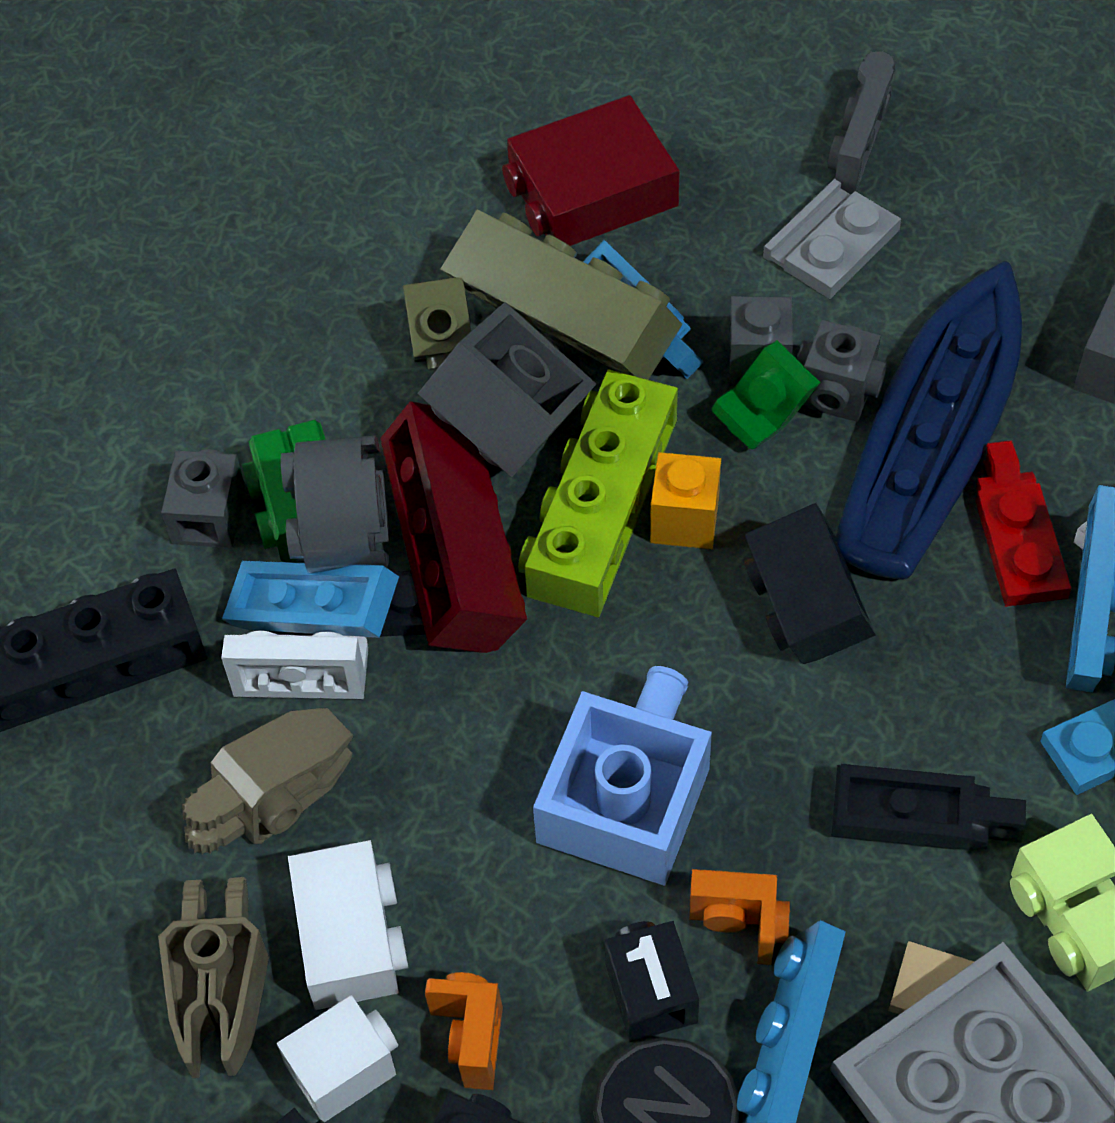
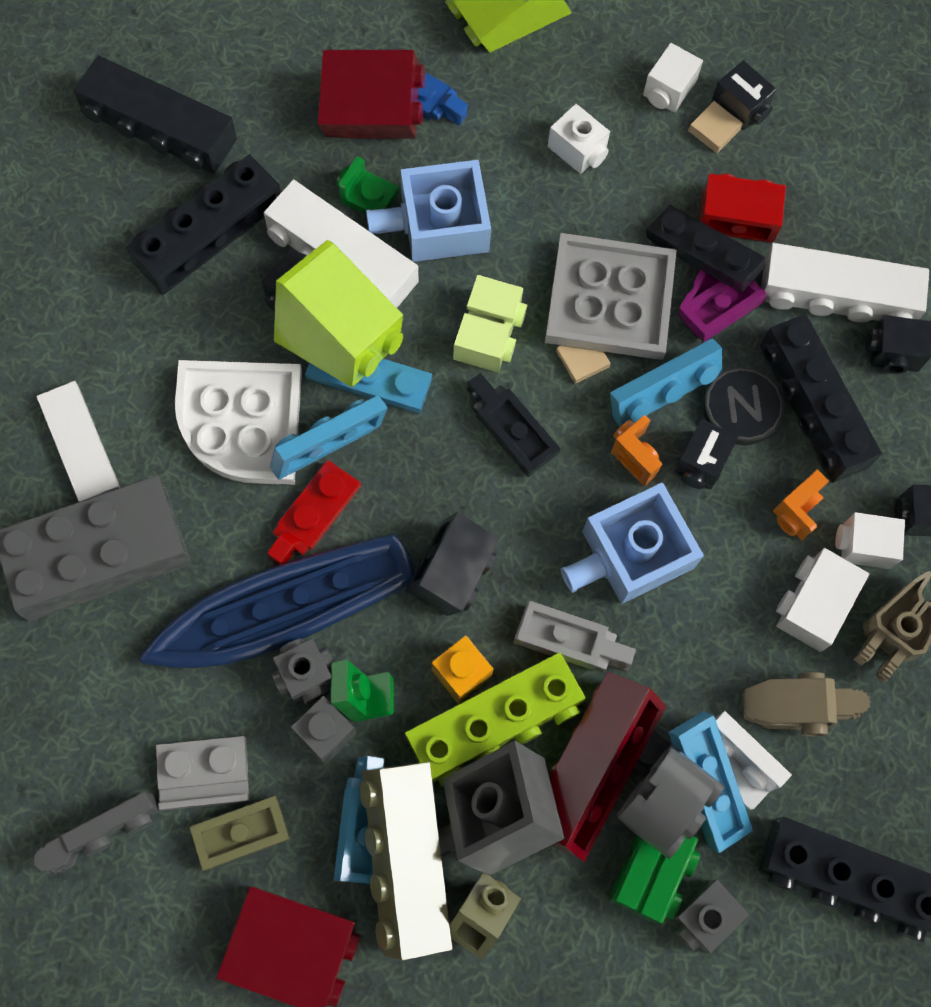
camera: 145 degrees left, 15 degrees up
(601, 636) = (576, 638): none -> light grey hinge
(739, 219) = (239, 833): none -> olive plate

